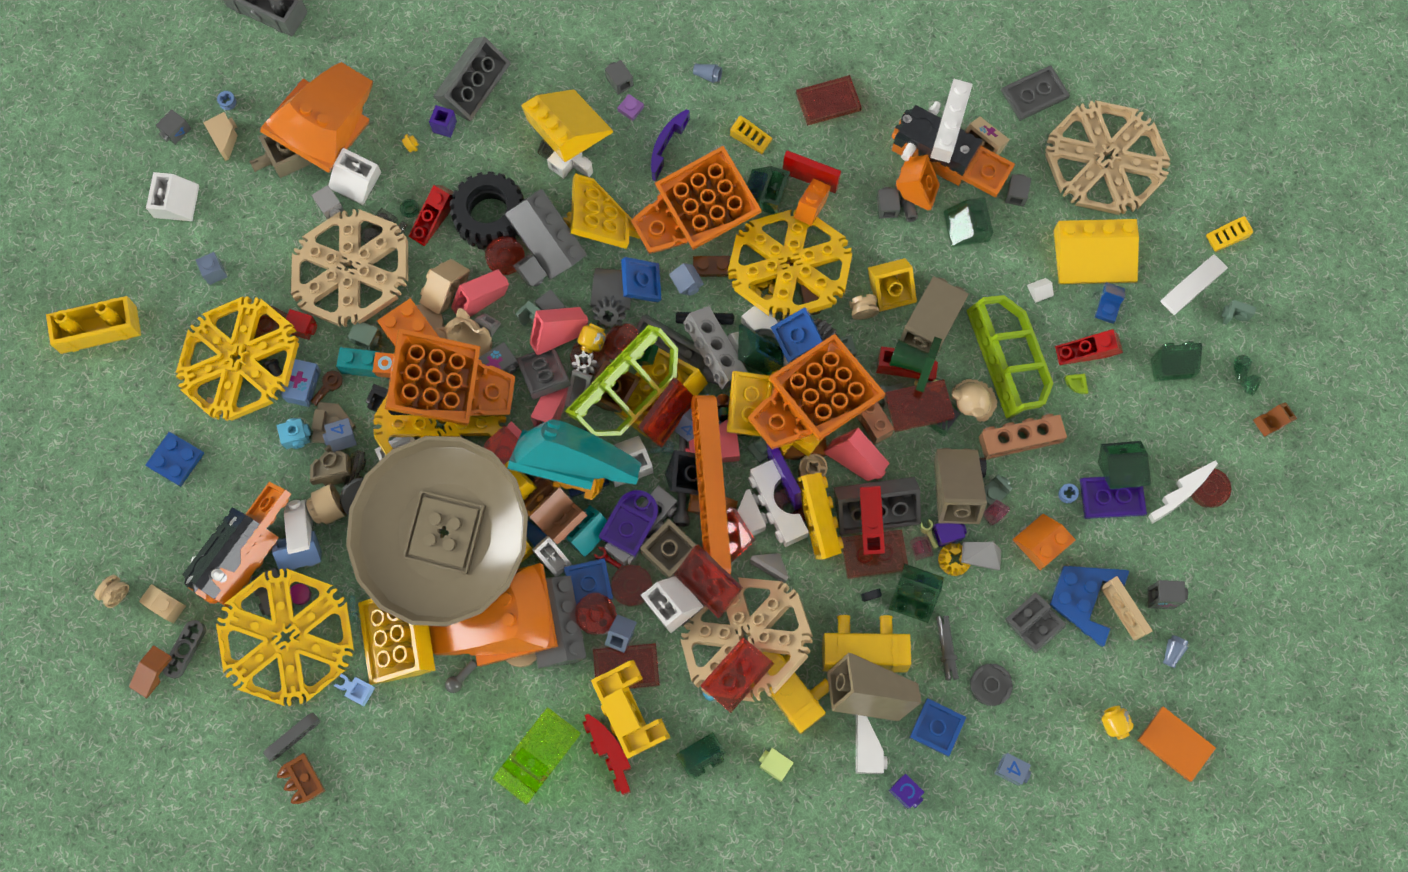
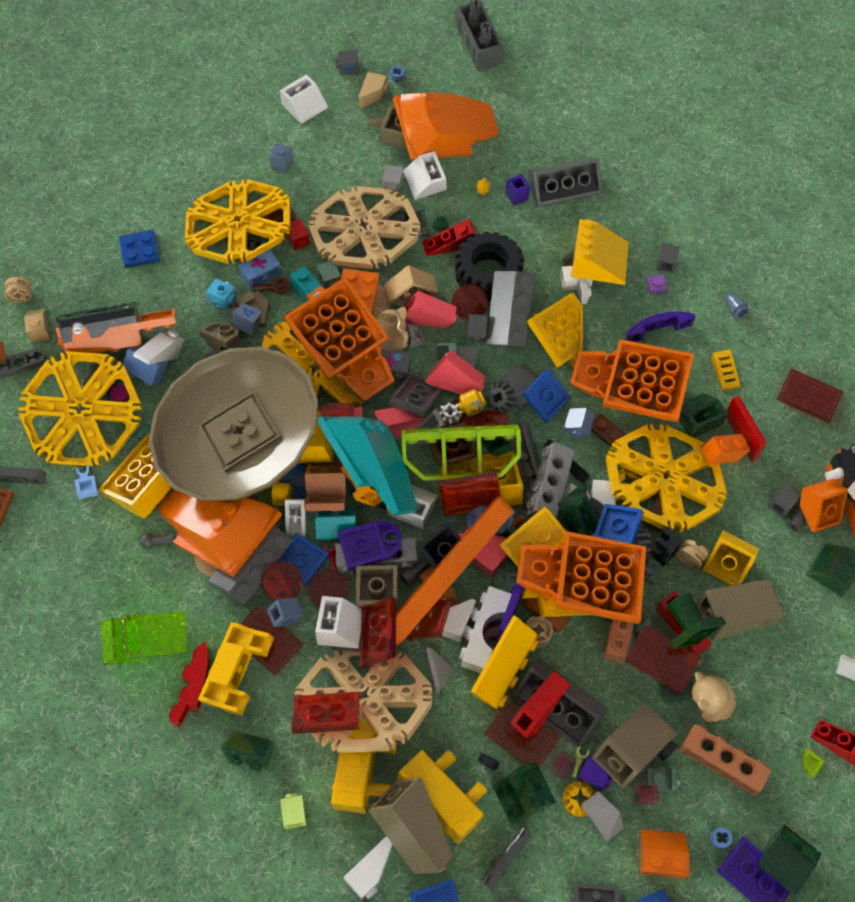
camera: 45 degrees right, 10 degrees down
(93, 324) = (179, 131): yellow piece -> none
(325, 505) = (191, 351): tan piece -> none
(843, 315) = (669, 544): none -> black hinge
(858, 455) = (580, 653): coral slope -> none
(995, 359) = (759, 682): lime plate -> none

